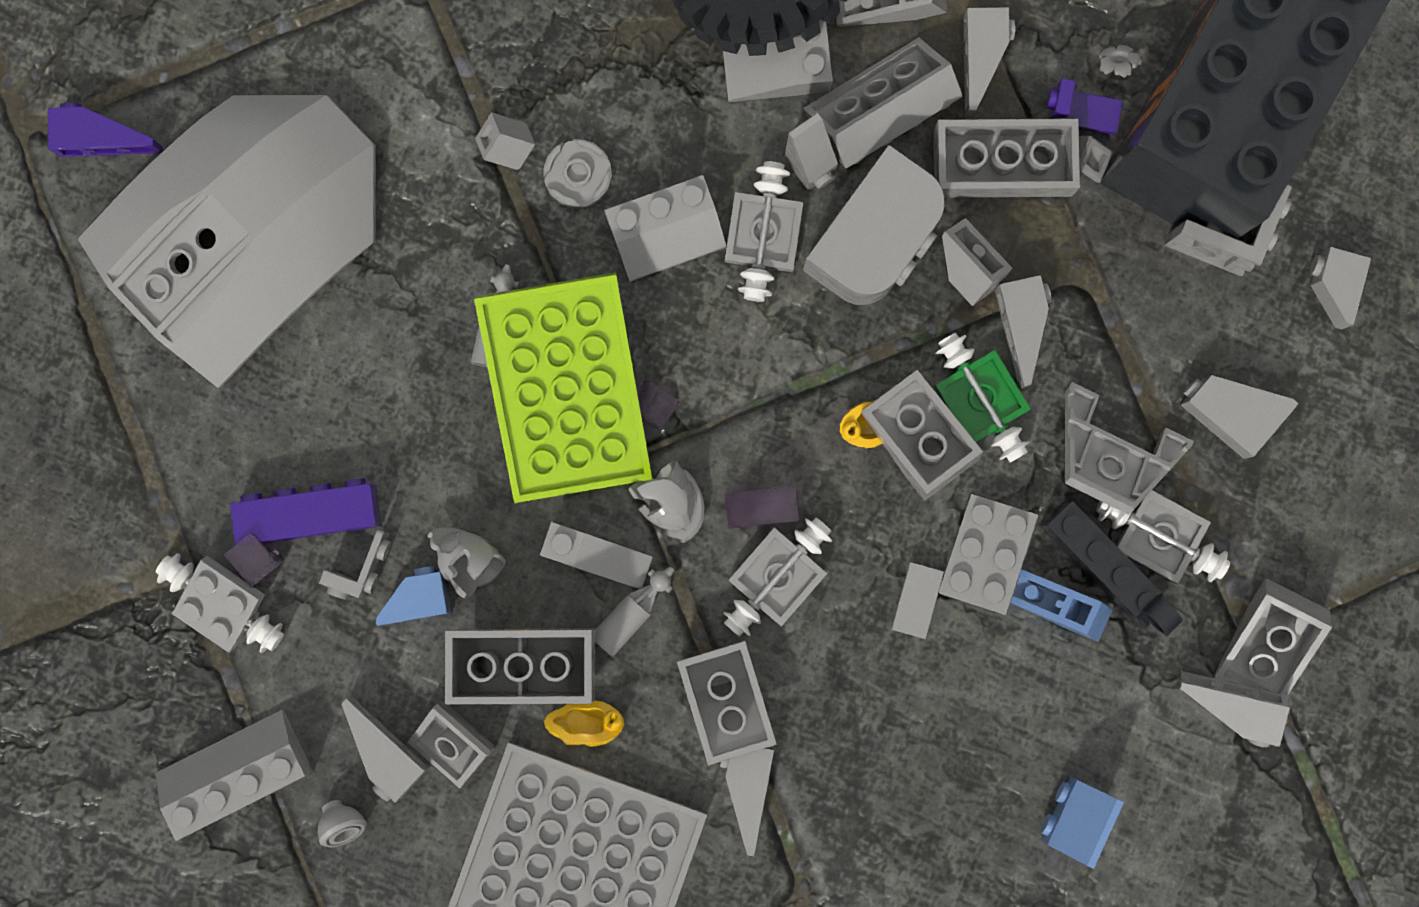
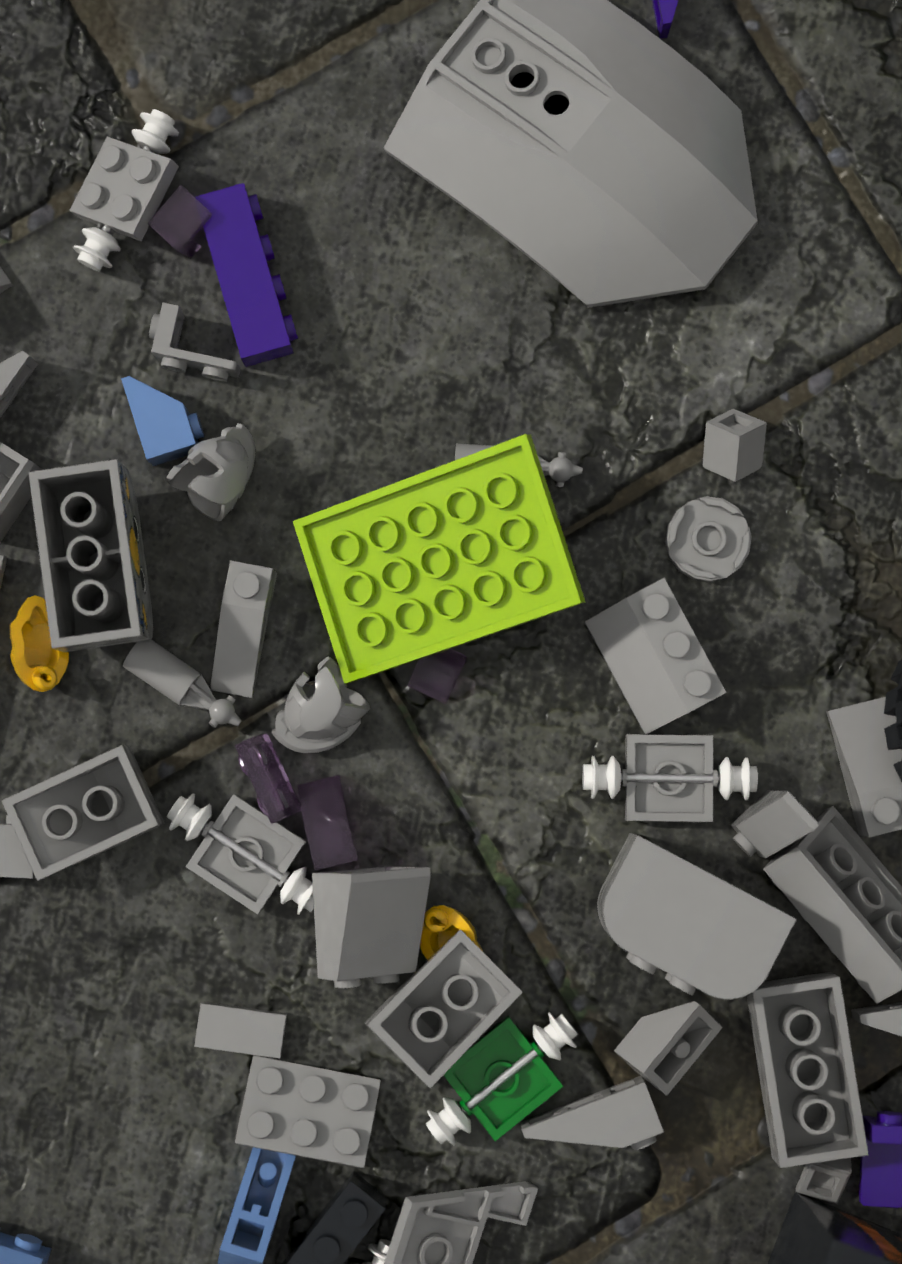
camera: 85 degrees right, 0 degrees up
(707, 554) = (273, 788): none -> clear purple piece
(846, 483) = (369, 922): none -> light grey slope

